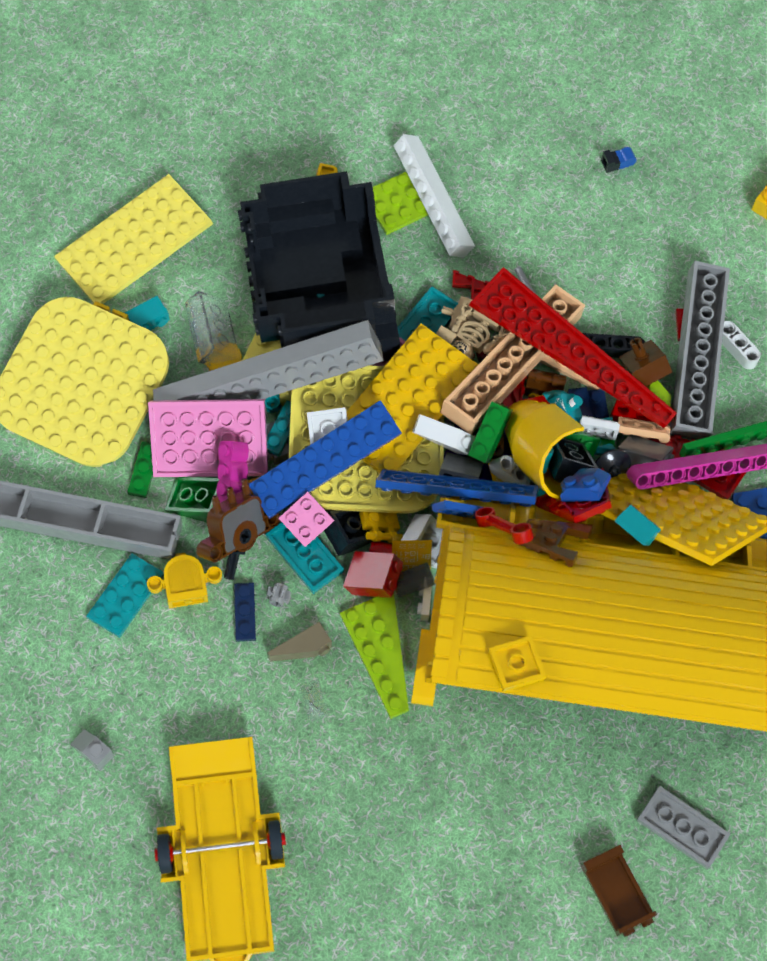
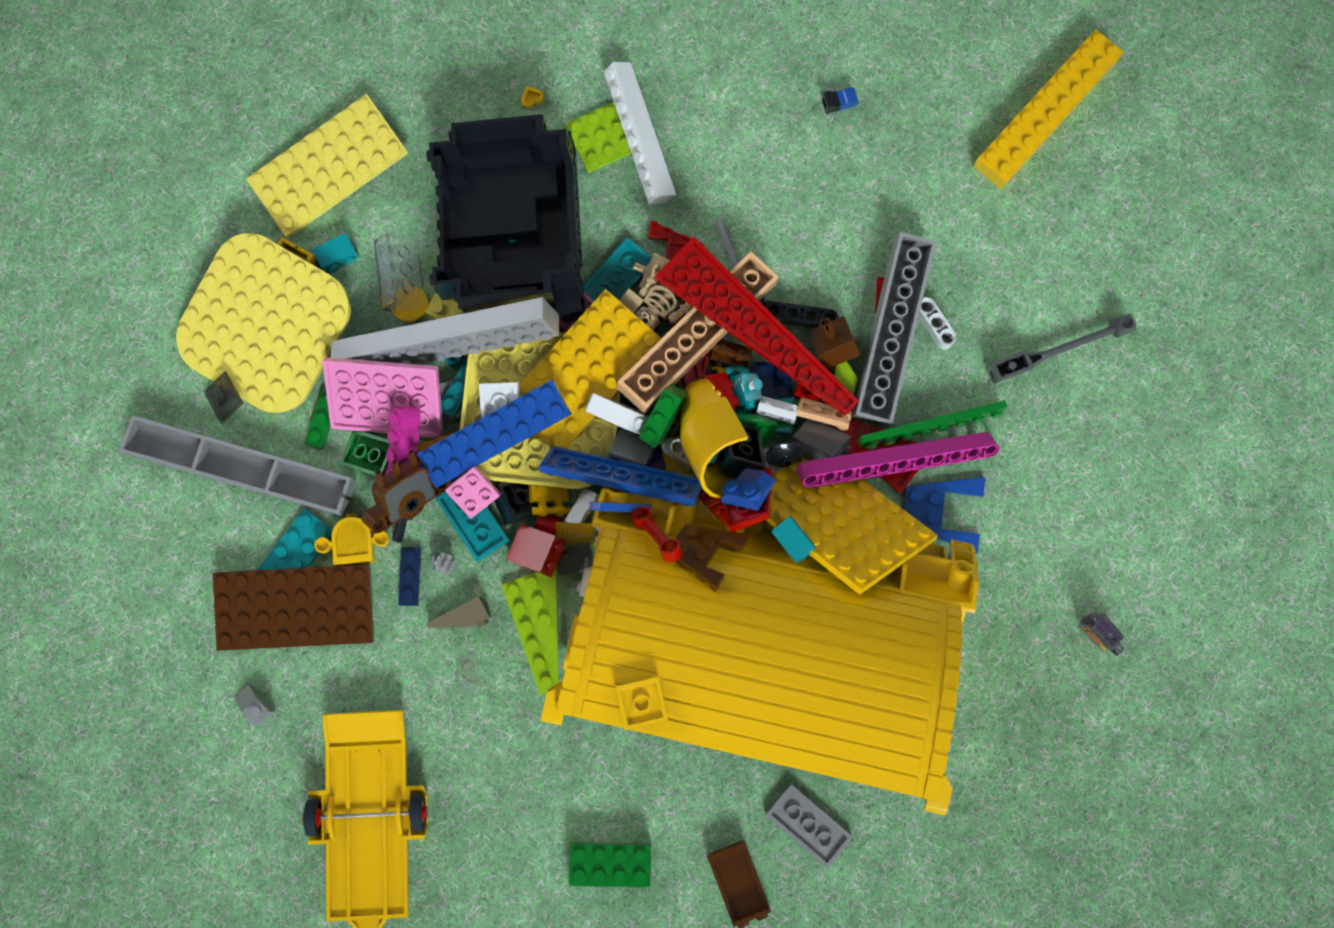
camera: 10 degrees right, 15 degrees up
(43, 453) = (223, 397): none -> clear smoke piece
(127, 648) = (293, 607): none -> reddish brown plate
(482, 881) = (610, 864): none -> green brick

